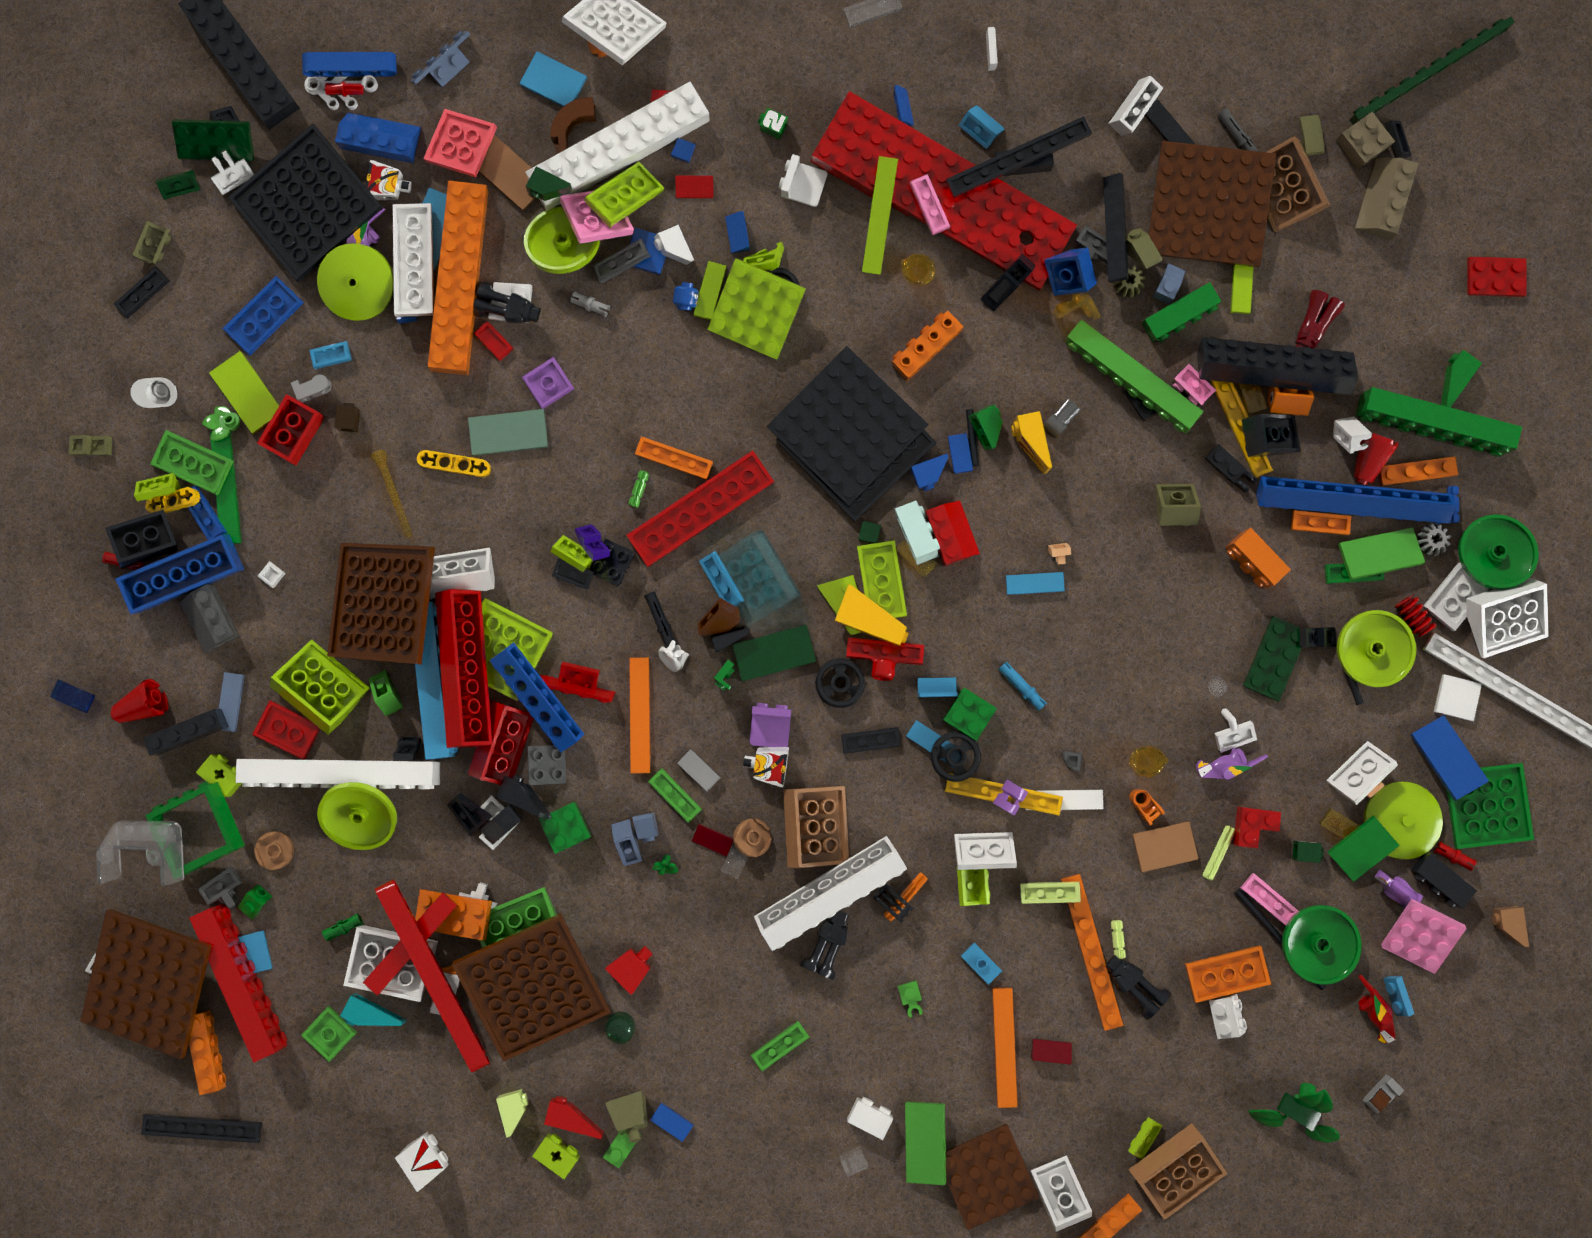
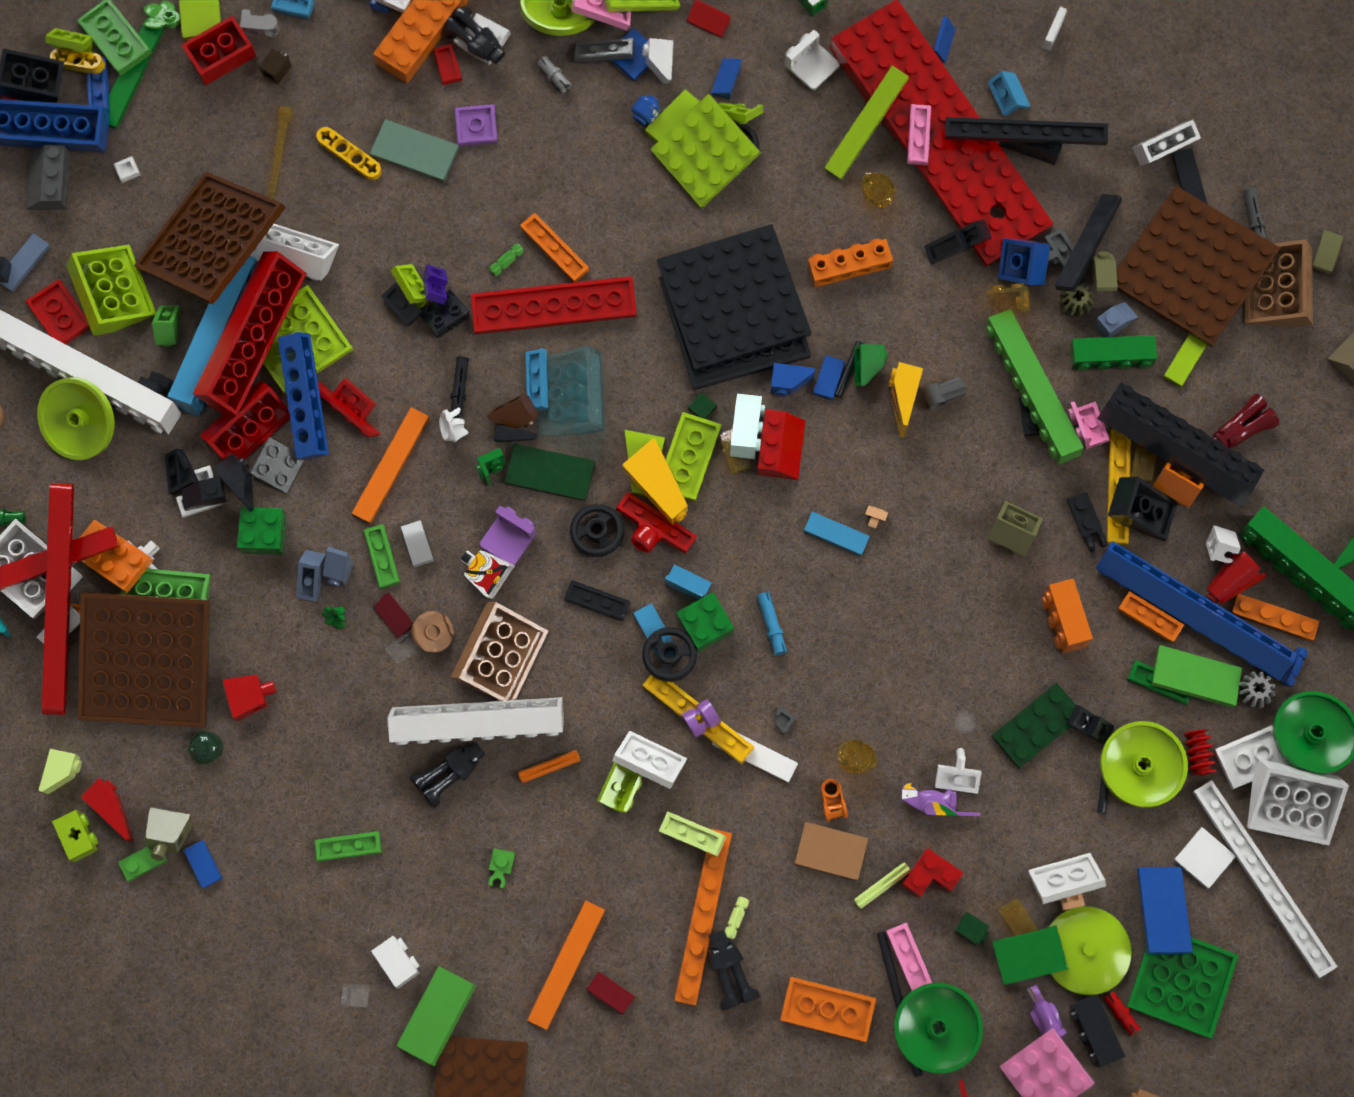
camera: 30 degrees right, 10 degrees down
(904, 912) = (538, 776): black tile -> none
(981, 963) = (587, 870): dark azure plate -> none
(1228, 1017) = (806, 1052): white bracket -> none

